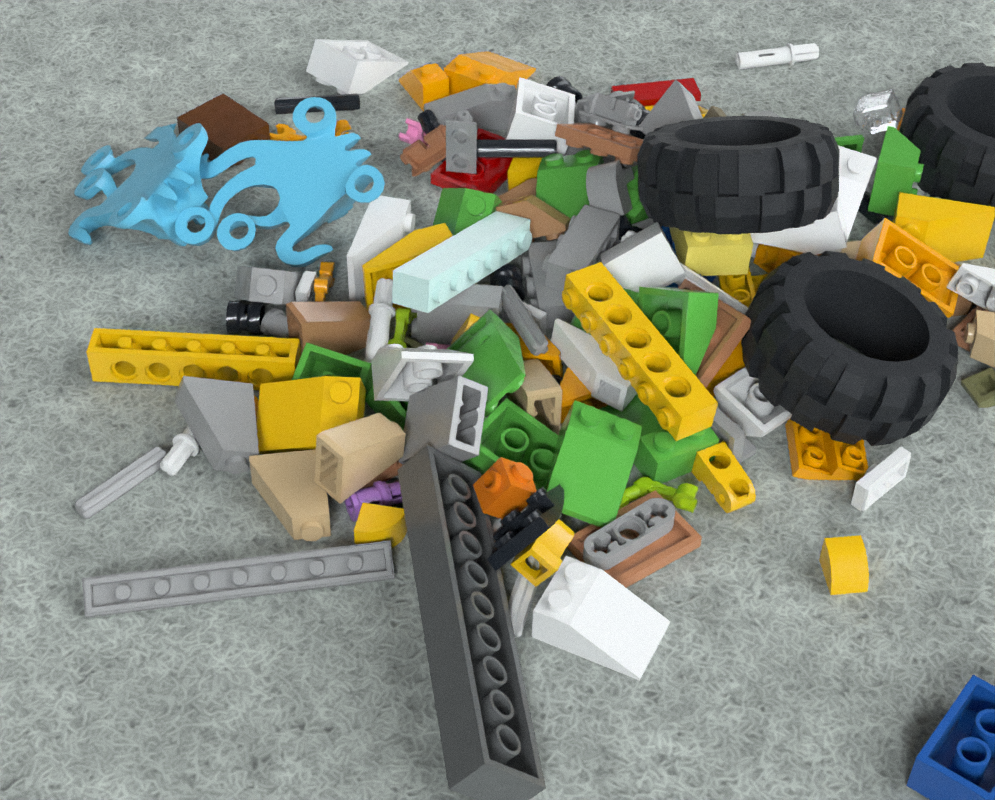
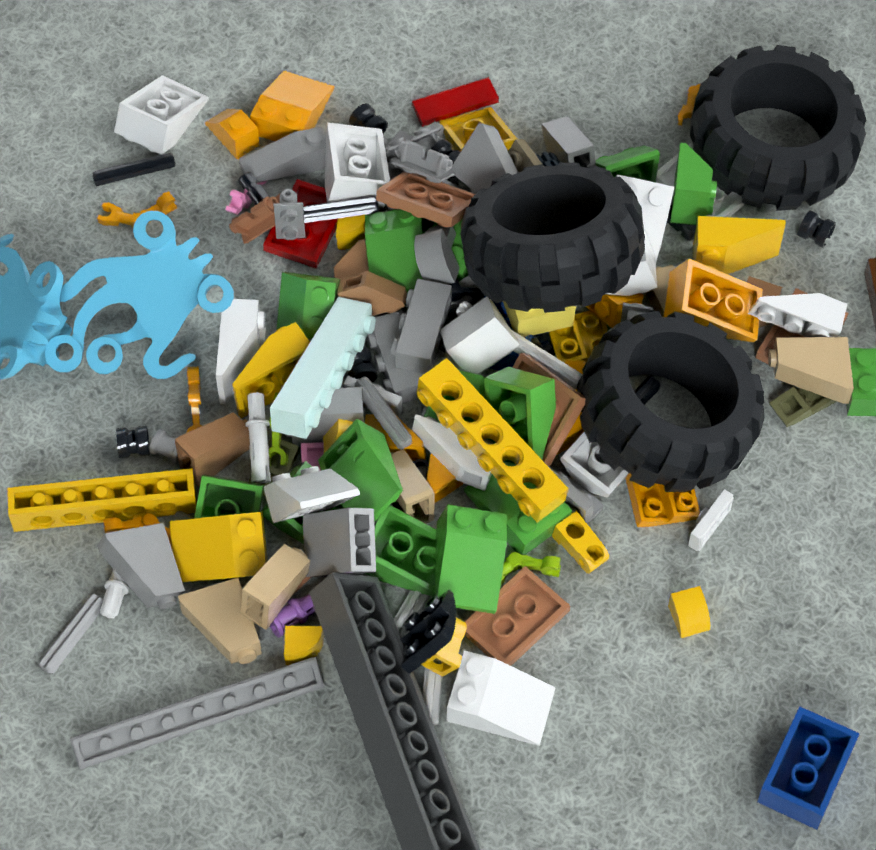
camera: 10 degrees left, 15 degrees up
(225, 124) = (55, 223): reddish brown brick -> none
(266, 285) = (145, 409): light grey slope -> none
(305, 288) = (181, 405): white tile -> none
(504, 488) = (402, 595): orange brick -> none
(635, 519) = (512, 602): light grey beam -> none
(777, 56) = (566, 34): white axle -> none
(877, 112) = (668, 99): clear brick -> none

